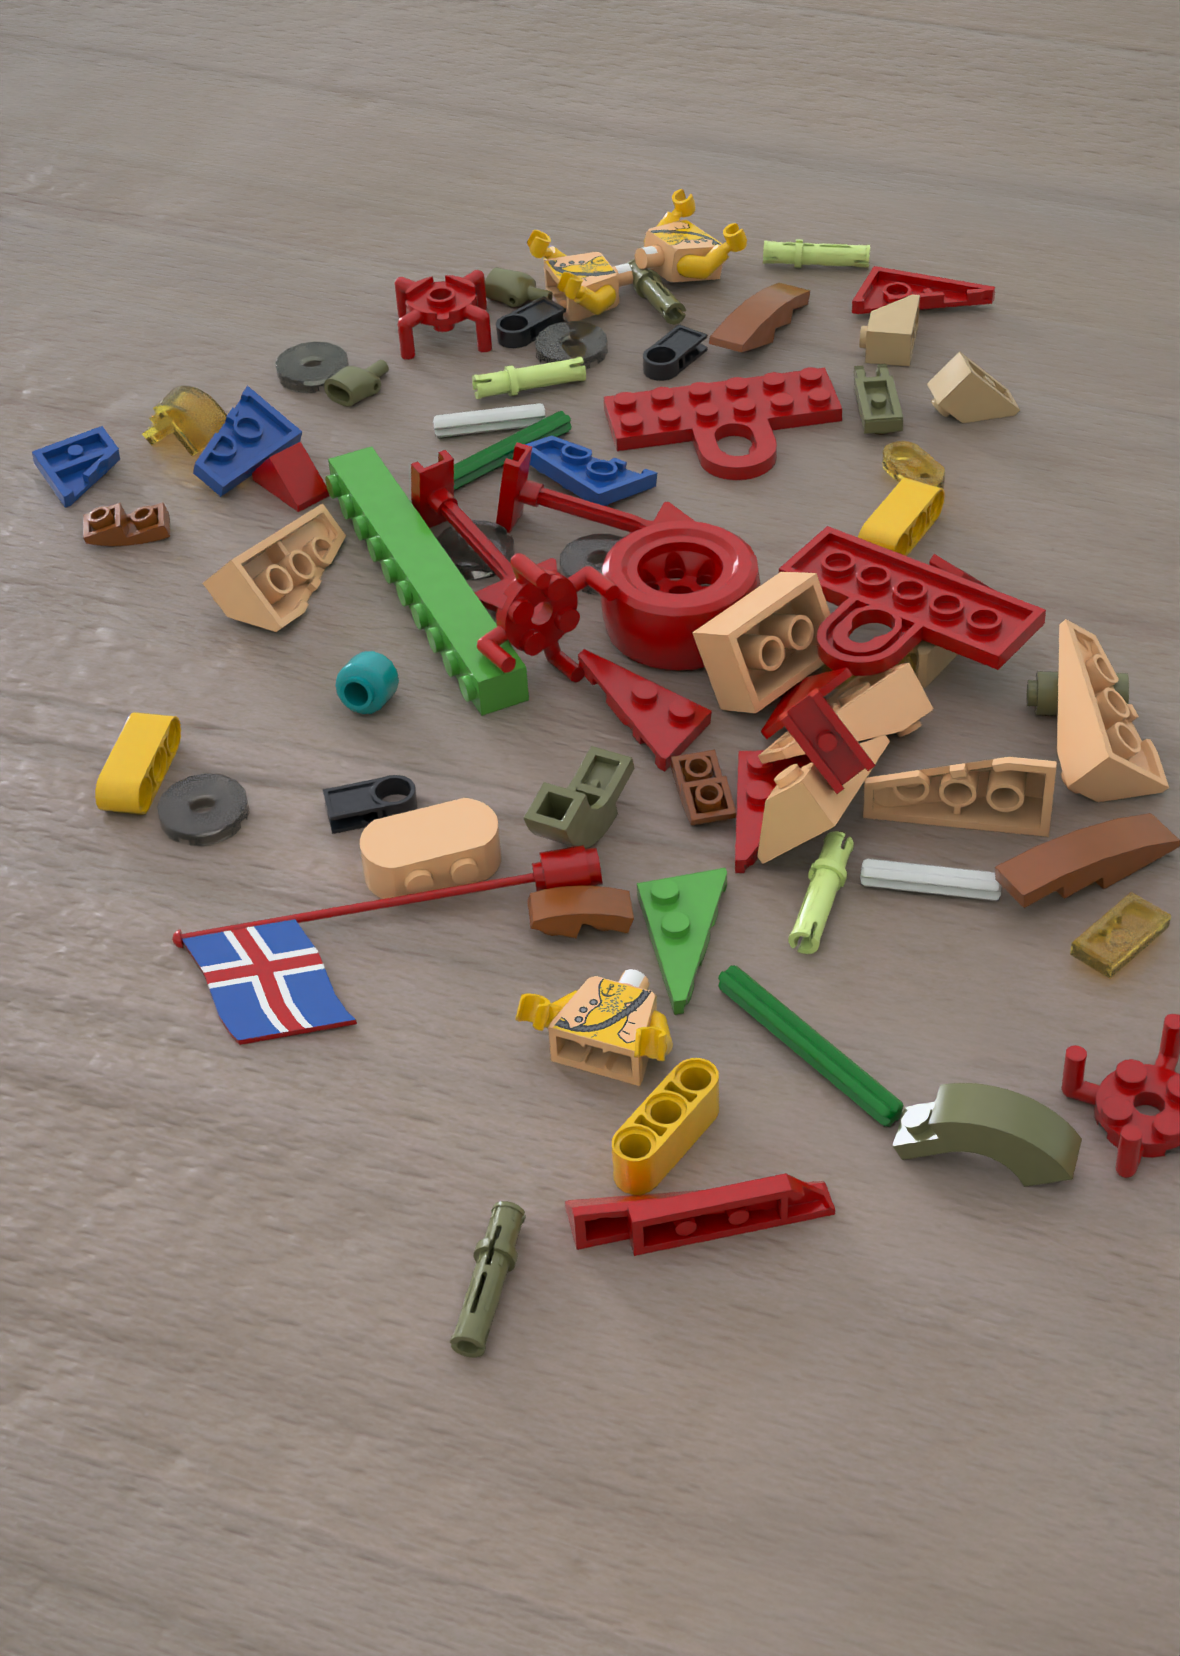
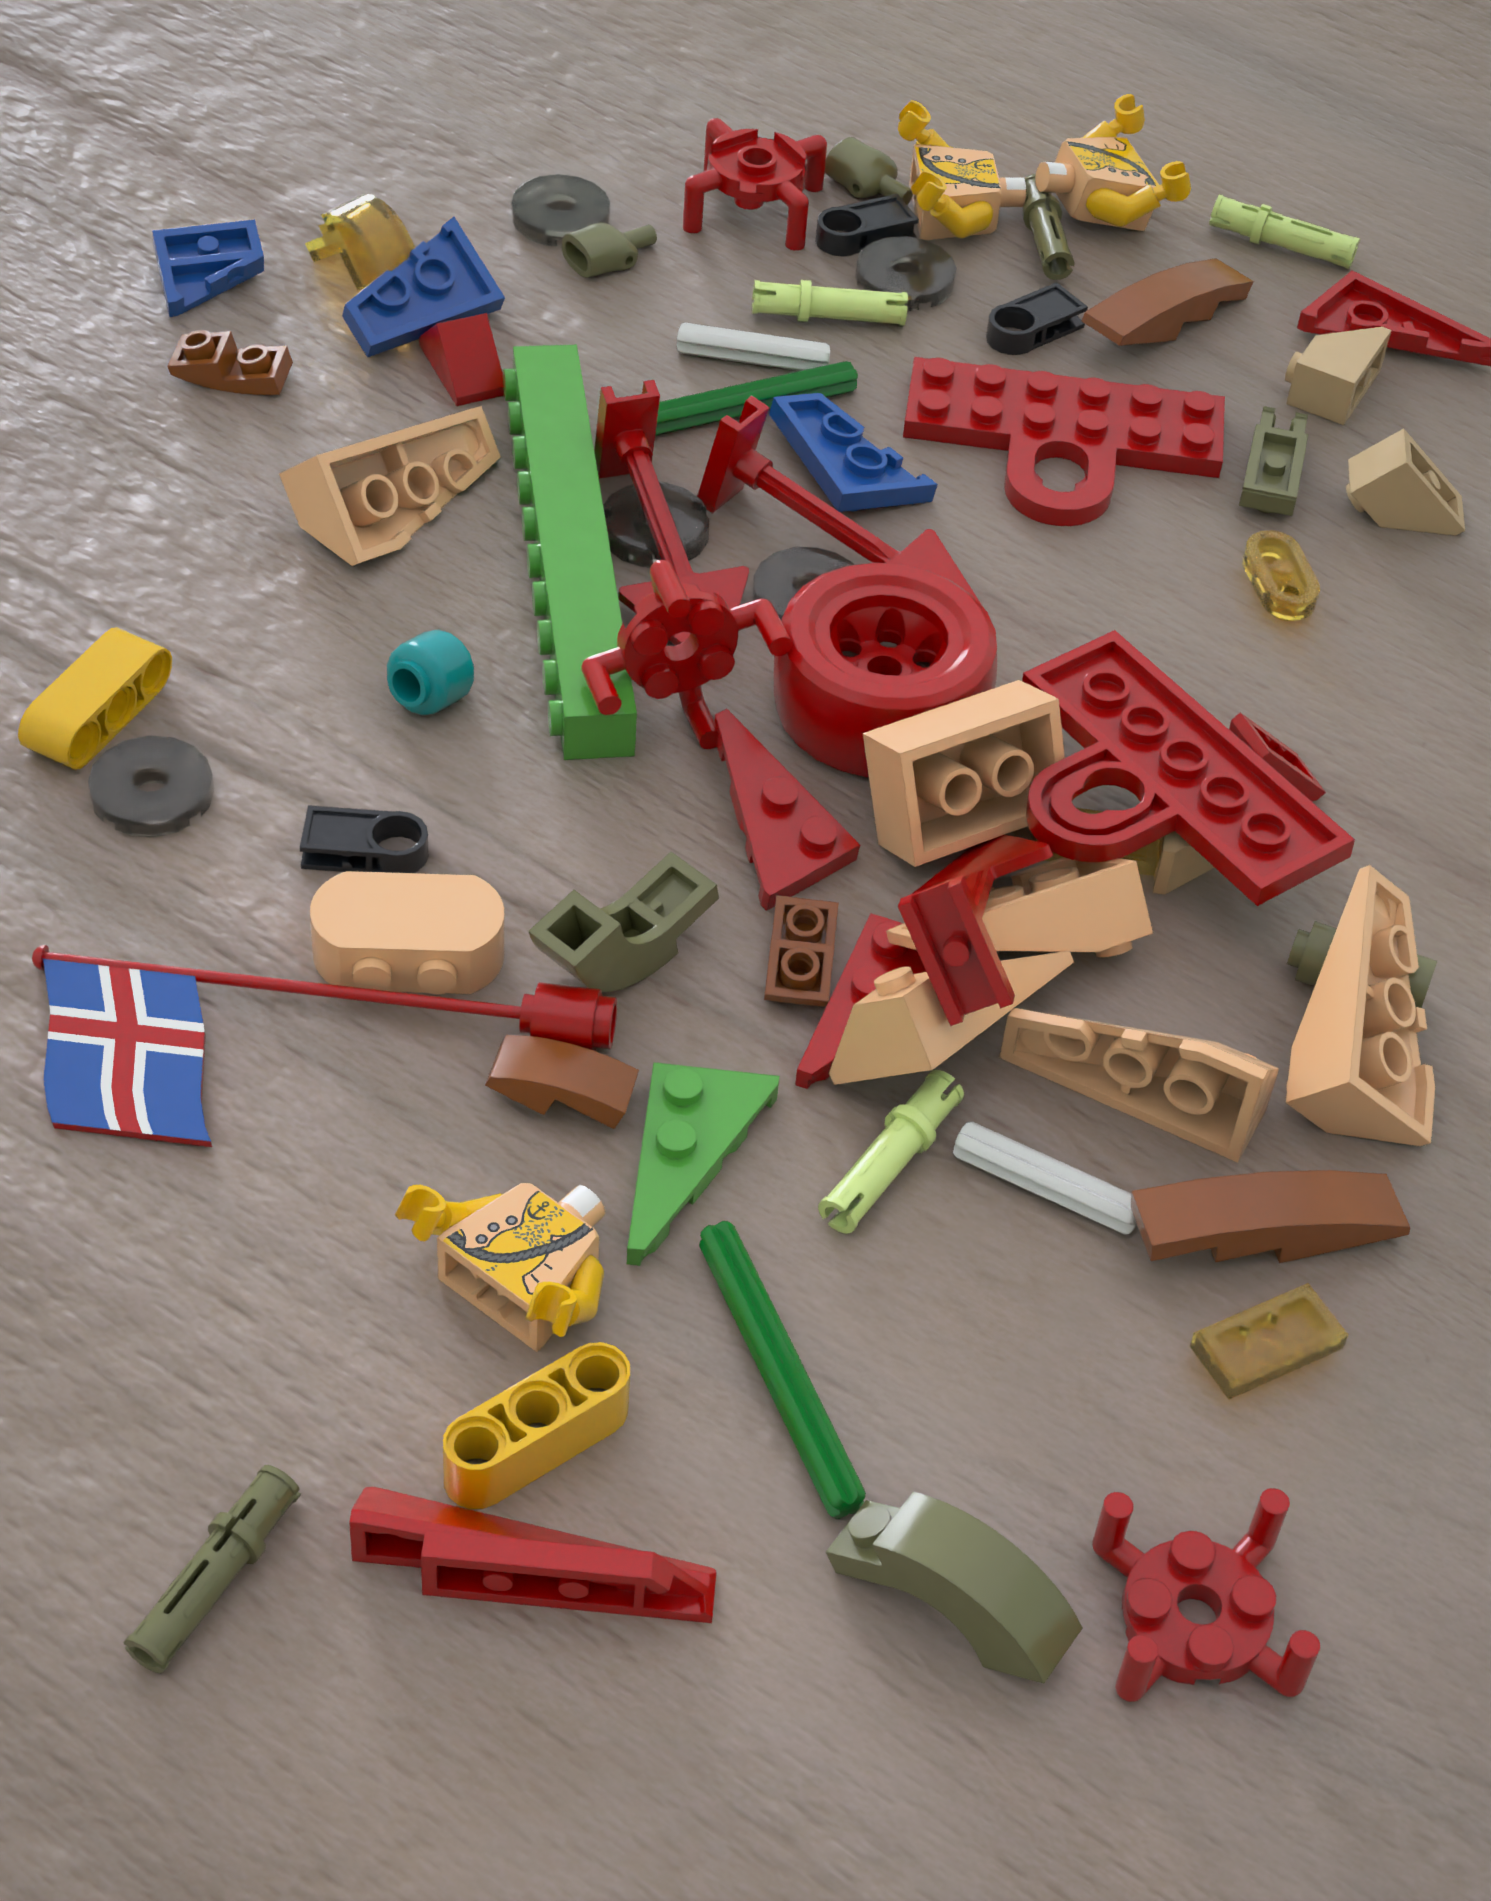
camera: 10 degrees right, 5 degrees up
(904, 516) = (1231, 645): yellow beam -> none

